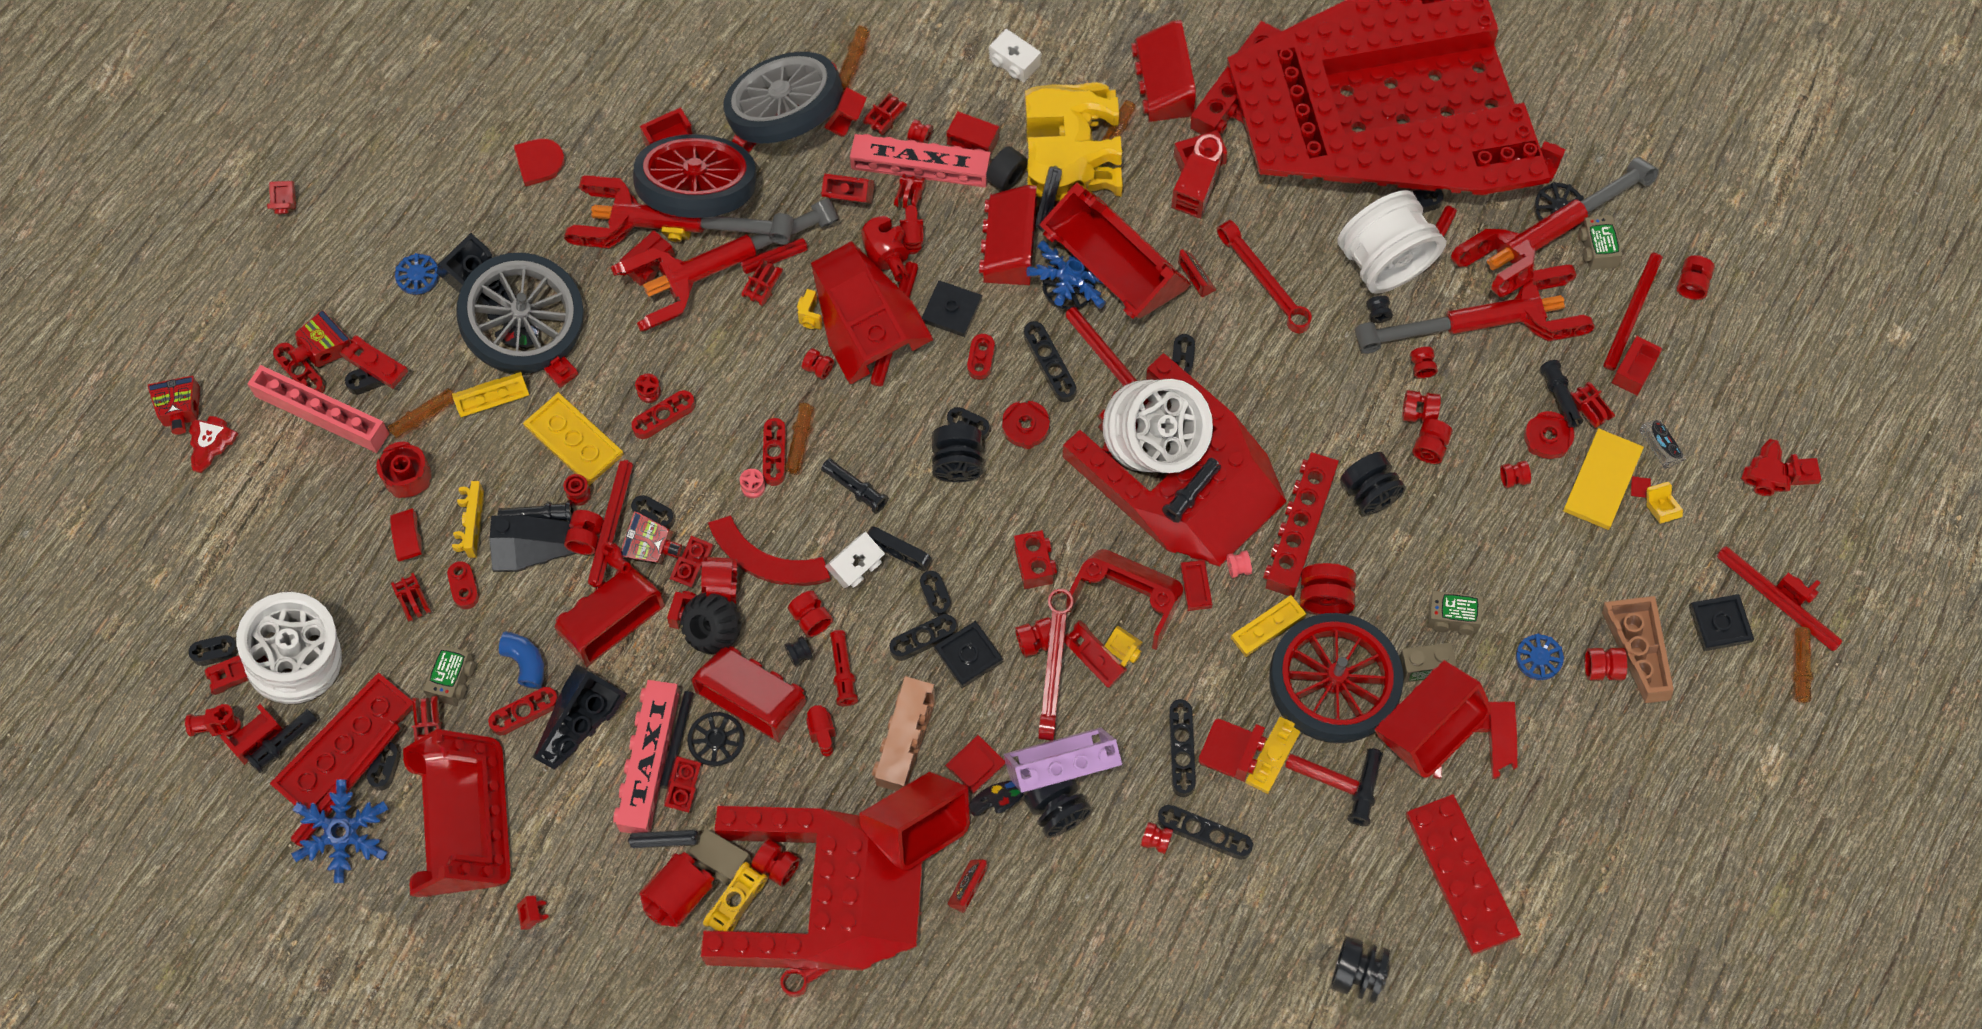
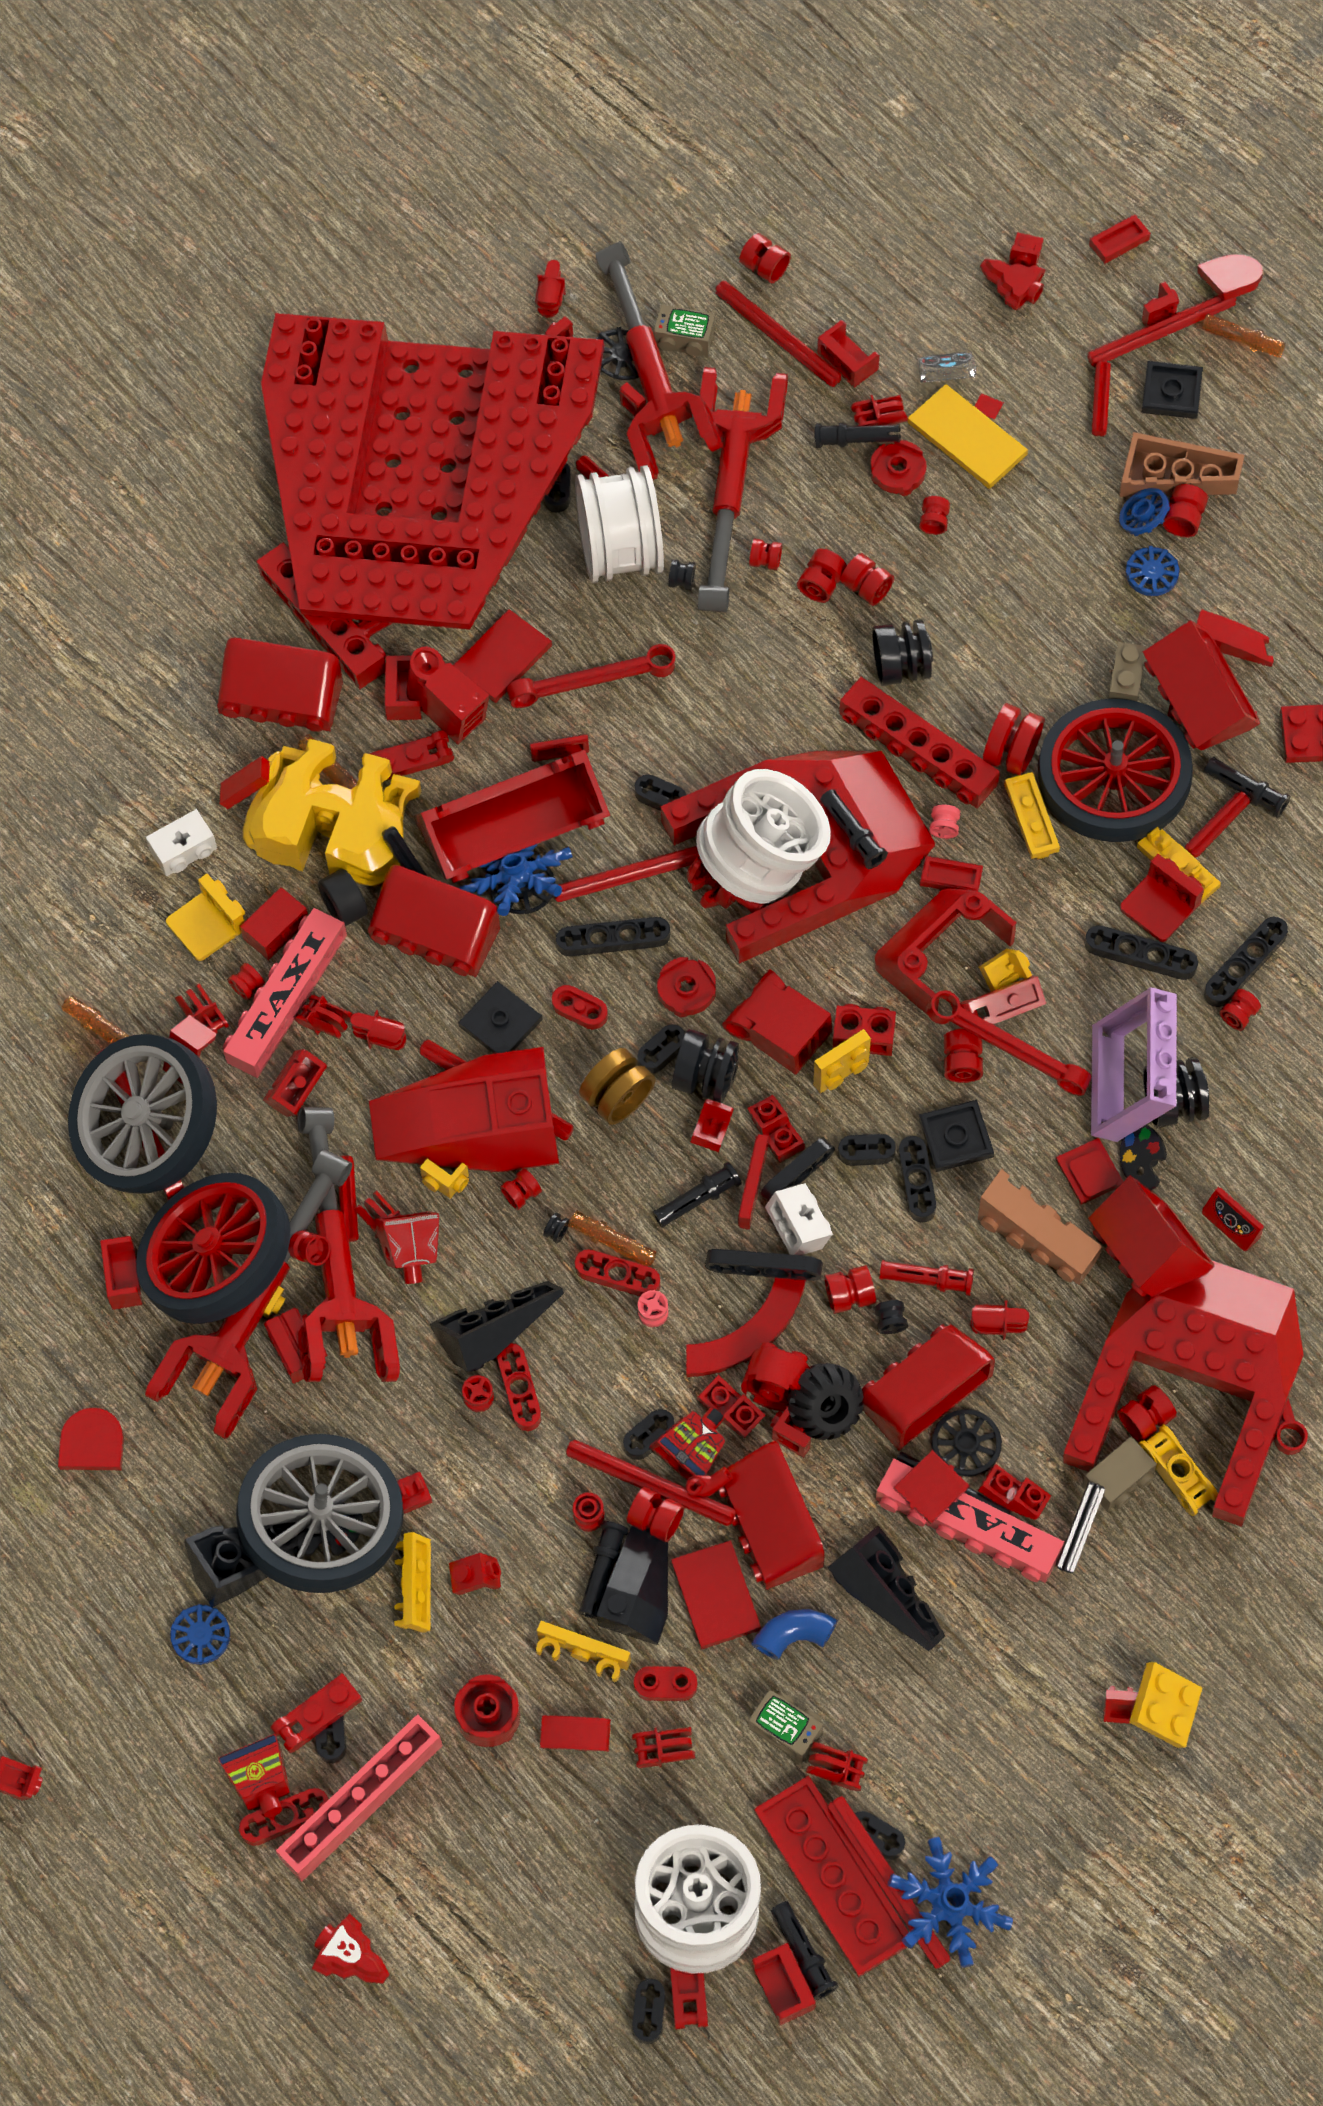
camera: 70 degrees left, 0 degrees up
(176, 402) = (276, 1984): red torso -> none
(214, 722) = (752, 2028): red connector -> none
(421, 413) = (413, 1686): clear orange pin -> none
(461, 812) = (974, 1757): red windscreen -> none
(509, 432) = (474, 1573): none -> red bracket
(513, 707) = (871, 1672): red beam -> none
(536, 944) = (1166, 1705): none -> yellow plate
(540, 597) = (716, 1594): none -> red tile
(573, 438) = (511, 1502): yellow tile -> none
(660, 717) = (931, 1487): none -> red piece
(675, 891) = (1150, 1528): red cylinder -> none
(693, 372) = (484, 1333): none -> black wedge
(714, 235) = (309, 1248): none -> red wheel
(746, 300) = (409, 1242): none -> red torso
(794, 397) = (556, 1227): none -> black bush
(809, 546) = (764, 1264): none -> black beam
(879, 519) = (753, 1182): none -> red tile
(885, 246) = (397, 1067): red piece -> none
(913, 476) = (712, 1125): none -> red bracket
(917, 397) = (617, 1086): none -> pearl gold wheel
(931, 524) = (774, 1122): none -> red slope
(959, 91) = (207, 919): none -> yellow bracket
(996, 548) = (840, 1062): none -> yellow plate
(1017, 497) = (780, 1022): none -> red piece
(1075, 75) = (244, 782): none -> red tile
(1146, 179) = (414, 755): none -> red plate
(1258, 211) = (503, 654): none -> red tile
(1455, 612) = (1076, 631): brick -> none
(1521, 222) = (631, 399): none -> red tile
(1590, 631) = (1144, 511): none -> blue wheel
(1593, 138) = (550, 290): none -> red arm
(1662, 503) = (1020, 391): yellow bracket -> none
(1687, 570) = (1101, 398): none -> red axle
(1852, 540) = (1119, 239): none -> red tile
(1858, 637) = (1231, 275): none -> tile

